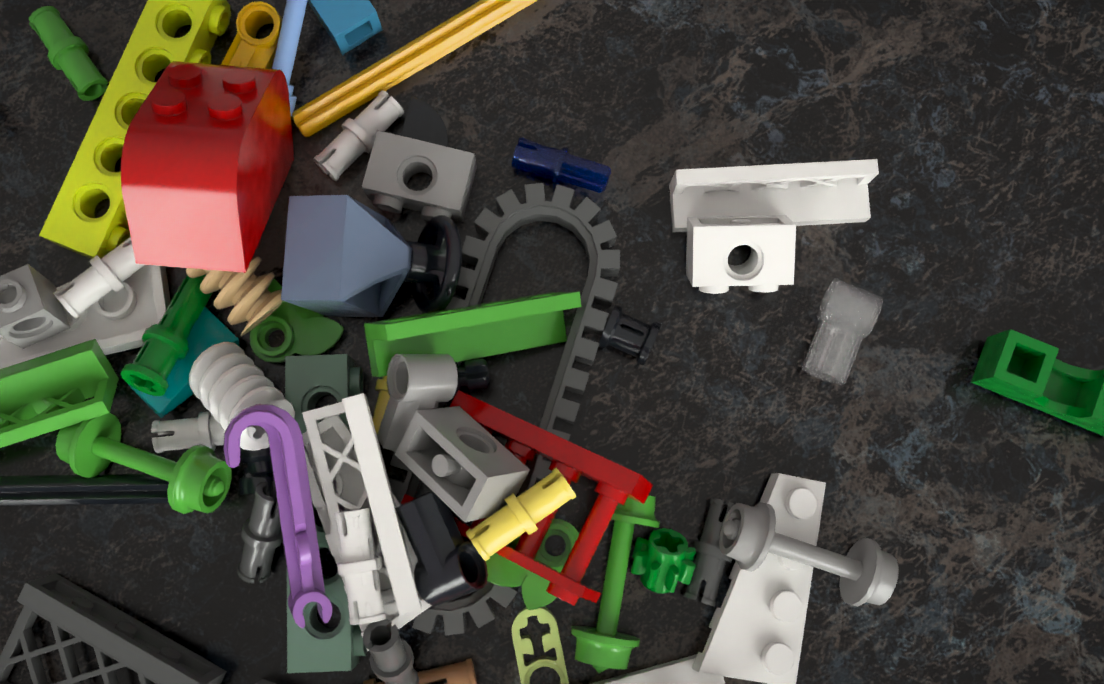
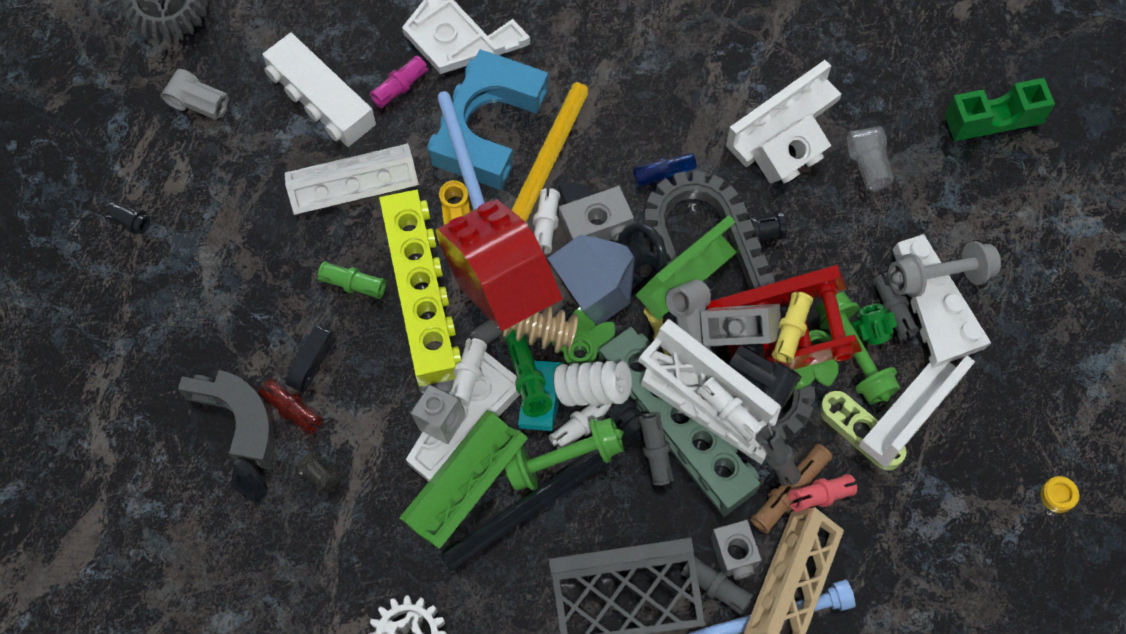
camera: 30 degrees left, 15 degrees down
(292, 499) = (671, 406): medium lavender piece -> none

